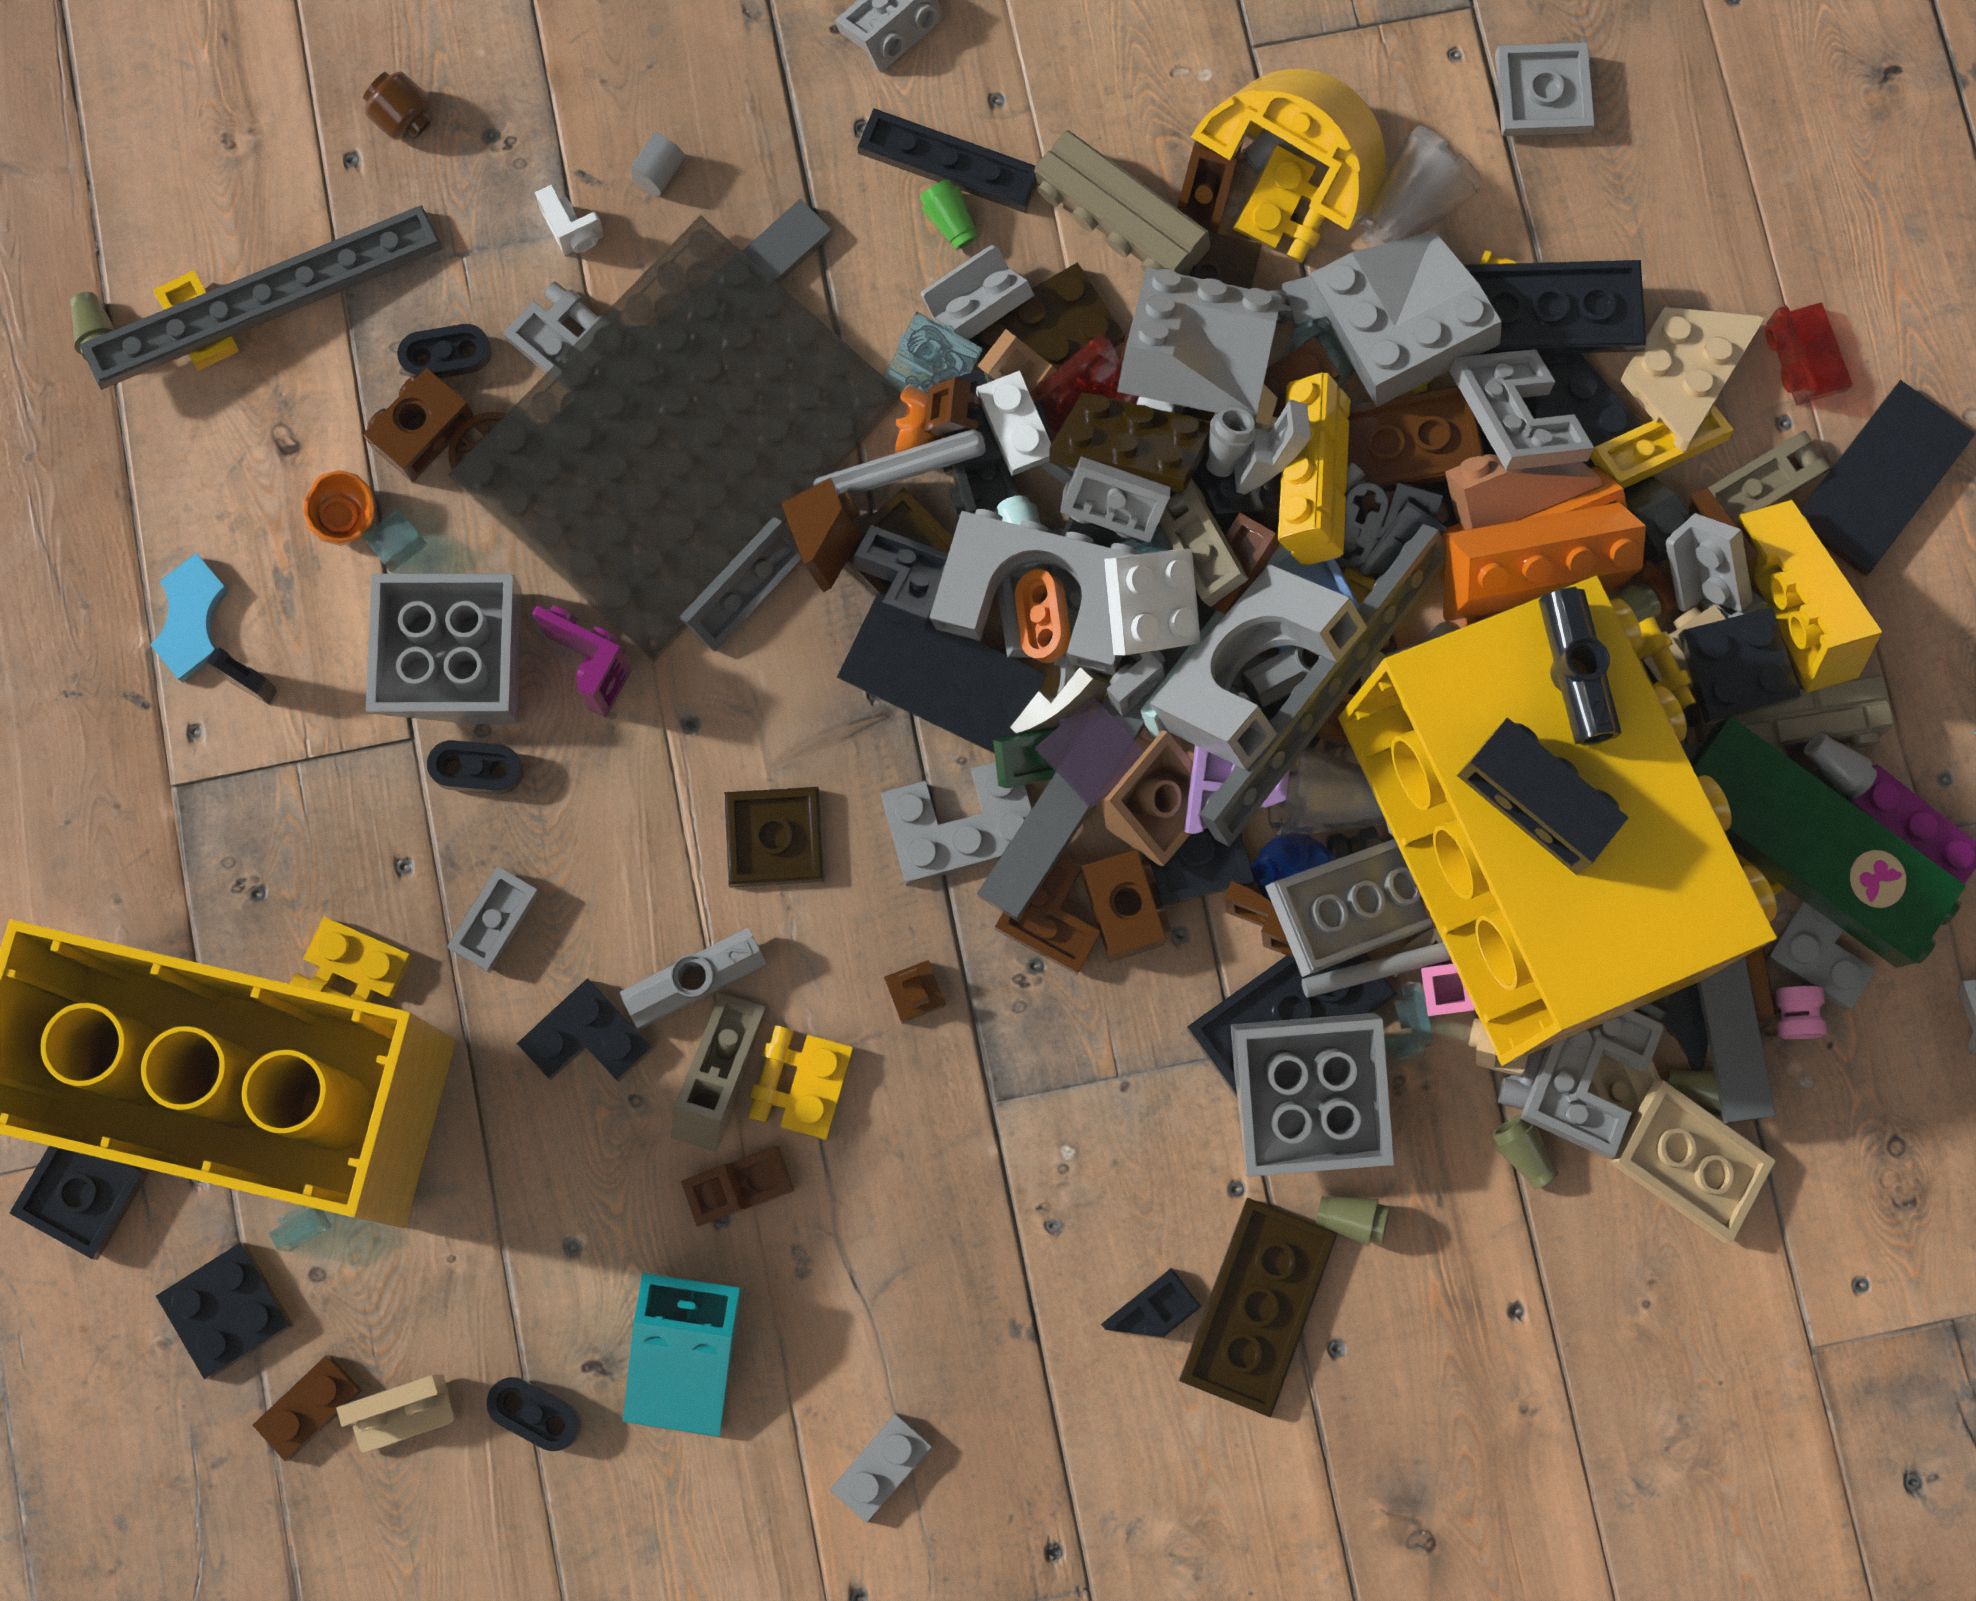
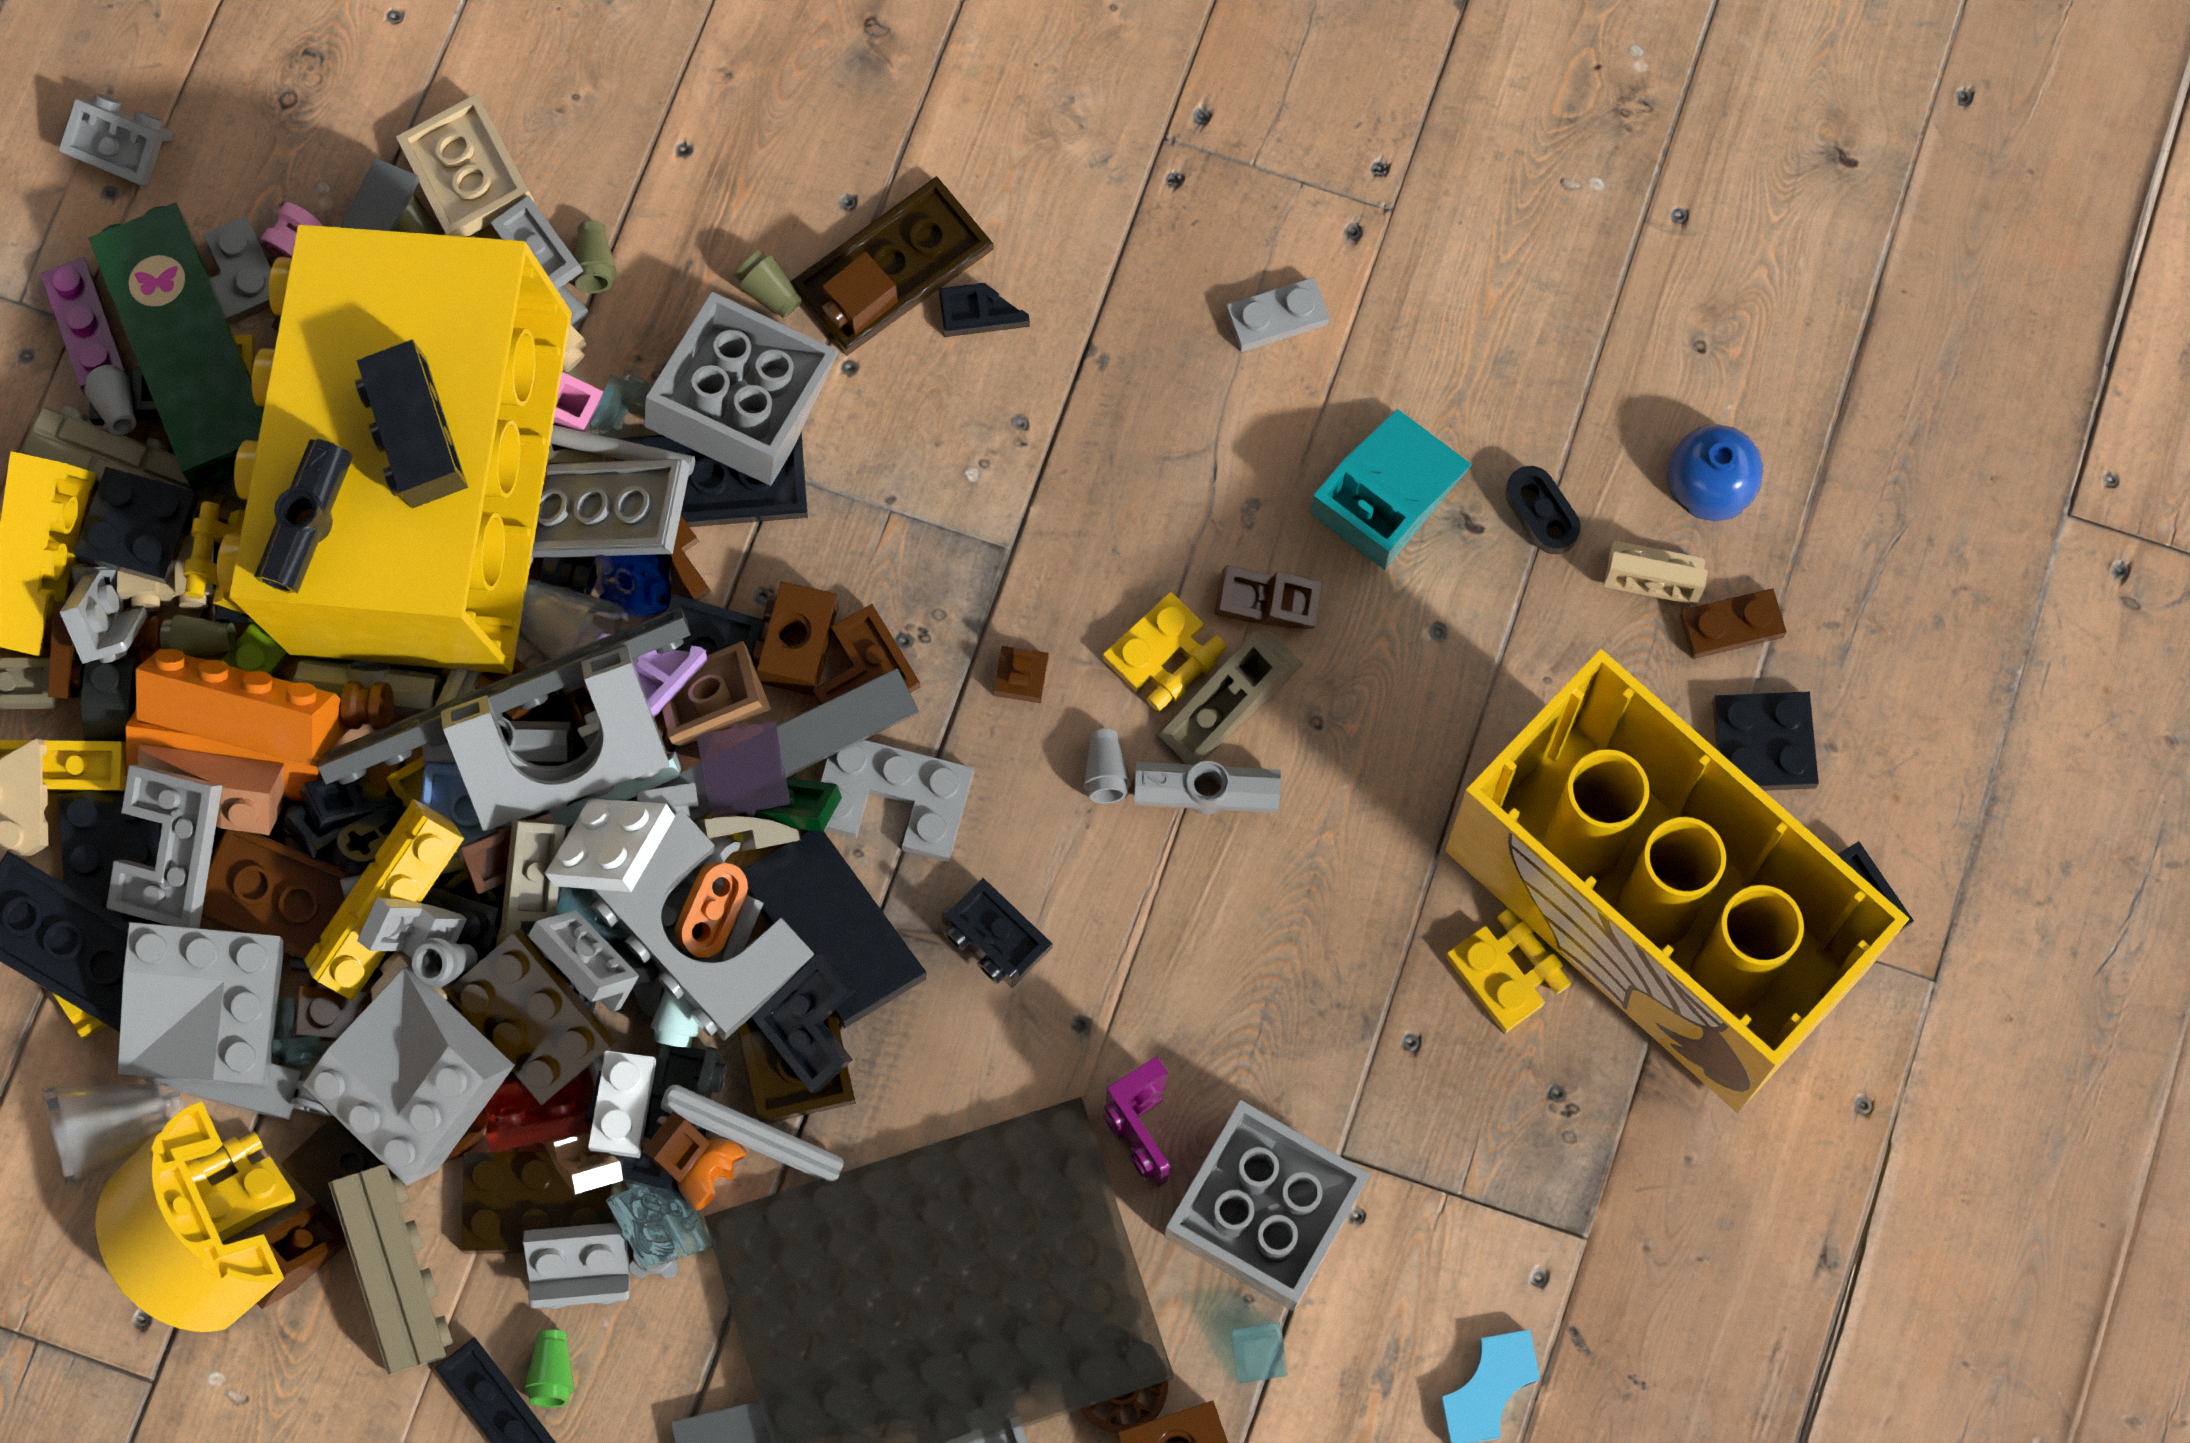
camera: 150 degrees left, 5 degrees down
(242, 676) = (1467, 1287): black tile -> none
(339, 507) = (1293, 1404): orange hair -> none
(394, 1547) = (1715, 472): none -> blue cylinder
(476, 767) = (1301, 1085): black plate -> none
(493, 919) = (1355, 940): light grey plate -> none
(584, 1022) = (1326, 811): black plate -> none
(742, 585) = (958, 1116): dark grey plate -> none
(774, 837) = (1065, 877): dark brown tile -> none
(791, 946) = (1106, 770): none -> light grey cone
(802, 748) = (995, 933): none -> black bracket
(823, 529) = (857, 1115): reddish brown slope -> none
(1265, 1246) = (859, 294): none -> reddish brown brick
(1438, 618) = (367, 705): none -> reddish brown wheel

